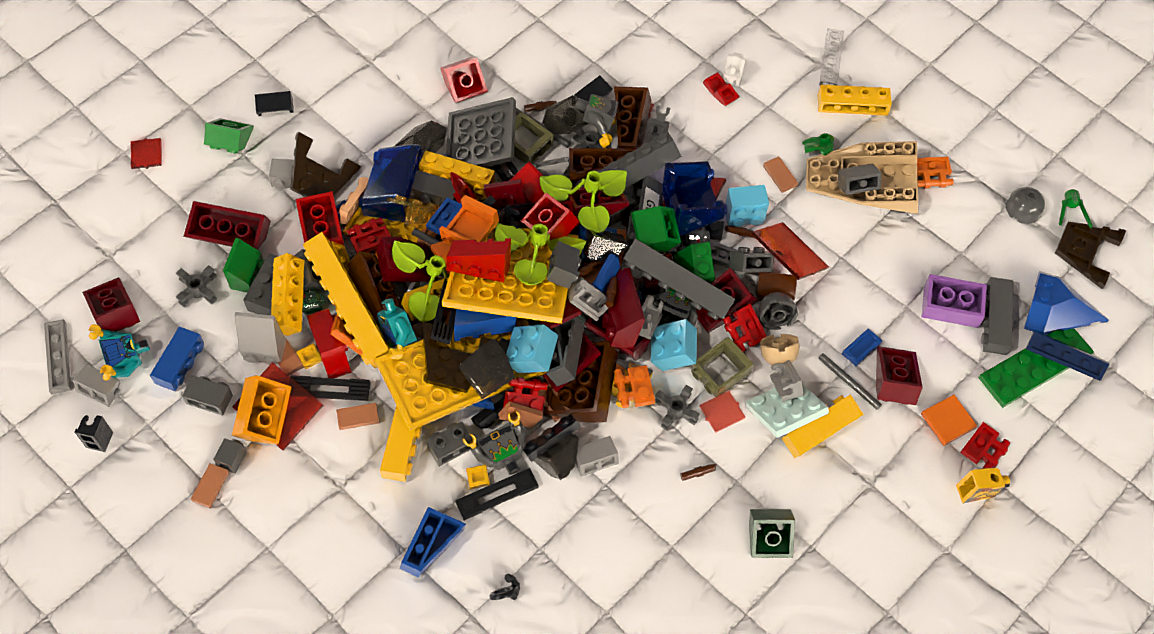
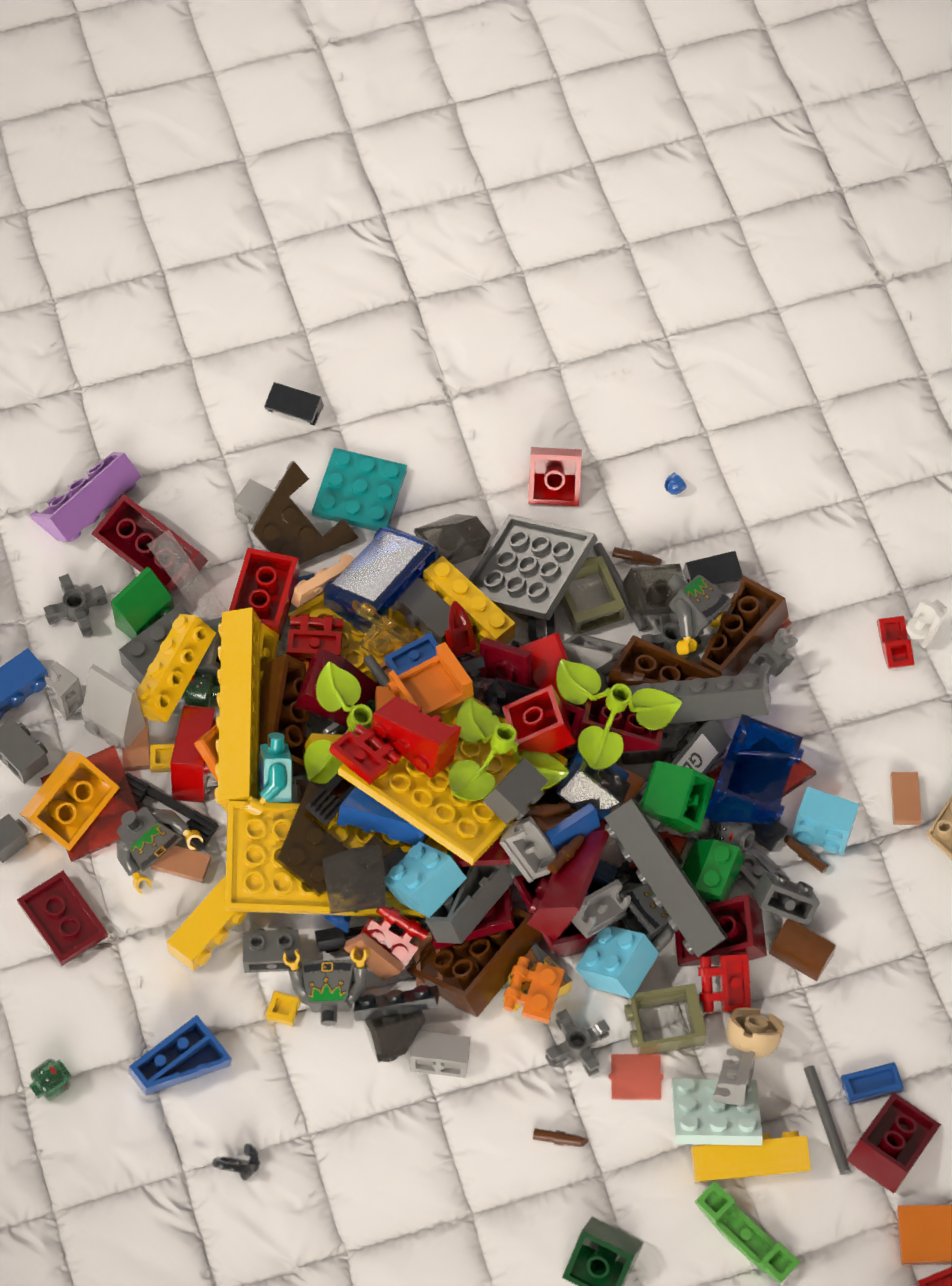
camera: 30 degrees right, 0 degrees up
(146, 153) = (105, 401): clear red piece -> none
(167, 216) = (88, 498): none -> medium lavender wedge
(222, 340) = (67, 691): none -> light grey hinge
(227, 135) = (215, 420): green slope -> none
(263, 233) = (186, 577): none -> clear plate
(297, 489) = (62, 918): none -> dark red plate
(328, 410) = (147, 837): none -> dark grey torso
(345, 138) = (359, 490): none -> teal plate
(348, 599) = (50, 1079): none -> clear green head
(454, 284) = (362, 759): none -> red plate
(470, 506) = (253, 1040): black container -> none
(539, 54) = (674, 484): none -> blue hinge
(777, 310) = (782, 980): dark grey cylinder -> none
(790, 250) = (848, 908): clear red piece -> none
(845, 474) = (745, 1234): none -> bright green slope

